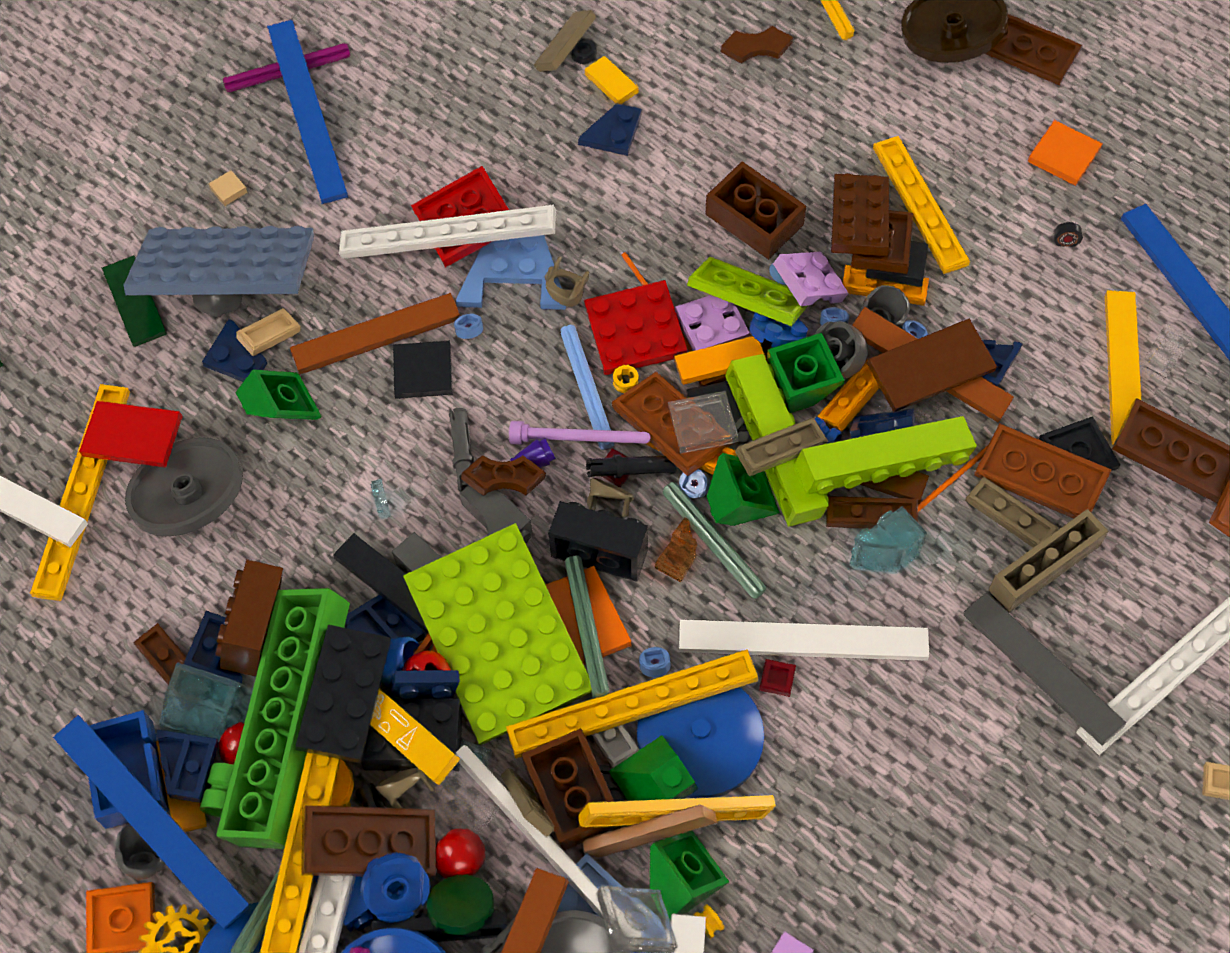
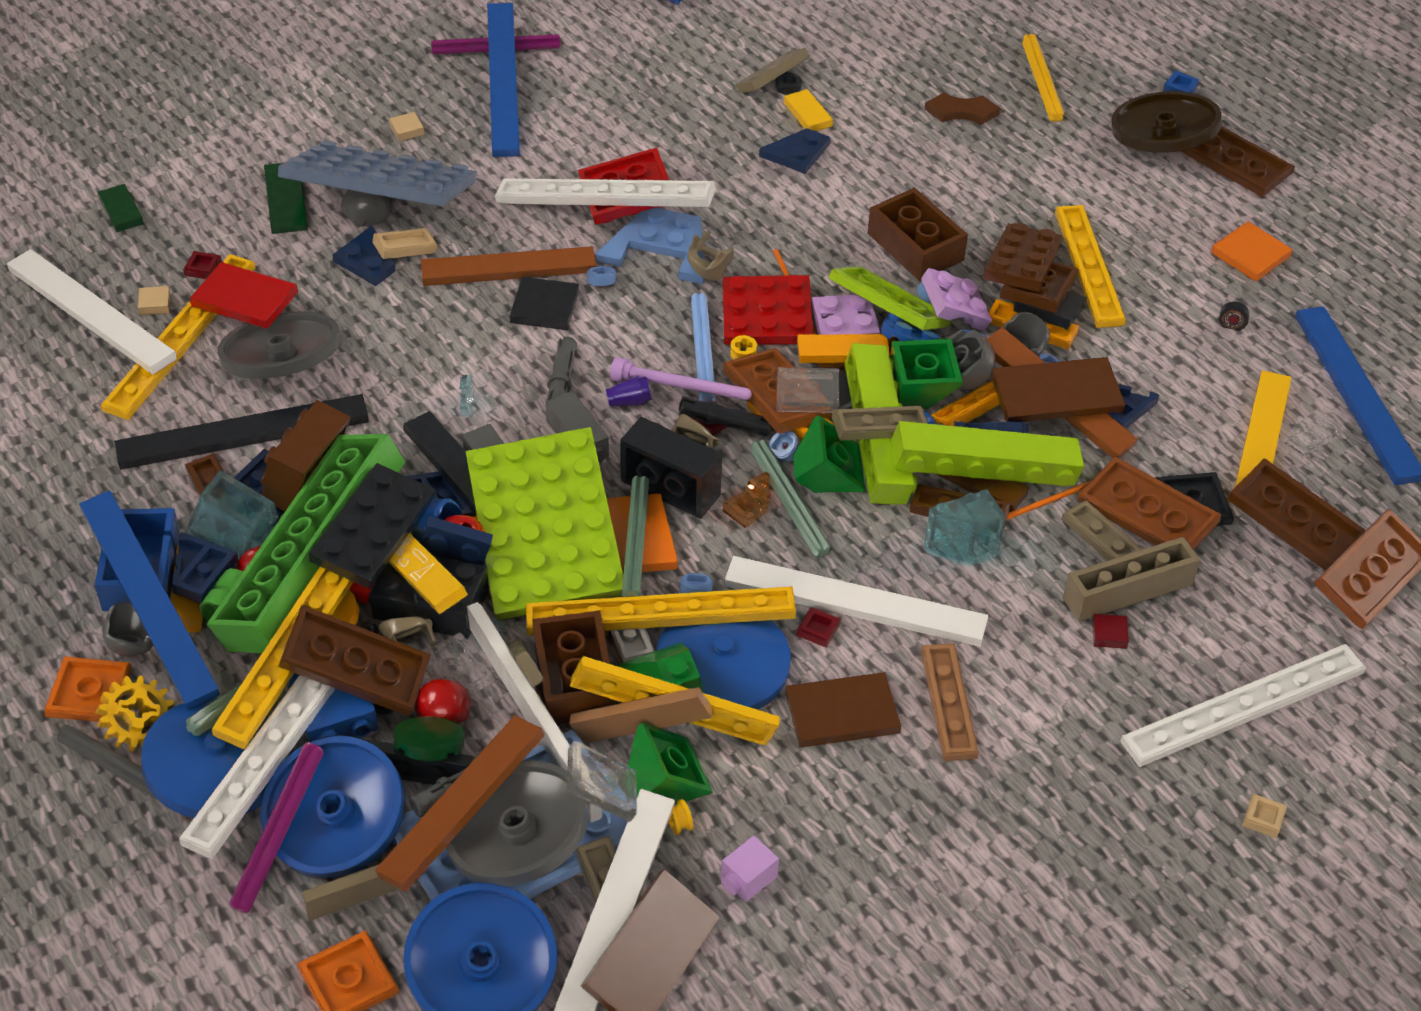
camera: 10 degrees right, 15 degrees down
(42, 456) = (154, 300): none -> tan tile
(77, 402) = (201, 264): none -> dark red tile
(173, 591) = (224, 434): none -> black tile
(277, 396) = (393, 293): green slope -> none
(384, 871) = (377, 721): blue plate -> none
(490, 475) = (580, 391): reddish brown tile -> none
(822, 763) = (842, 709): none -> reddish brown tile
(915, 730) = (949, 702): none -> medium nougat tile
(1039, 616) = (1110, 631): none -> dark red tile
(1044, 669) = (1101, 675): dark grey tile -> none

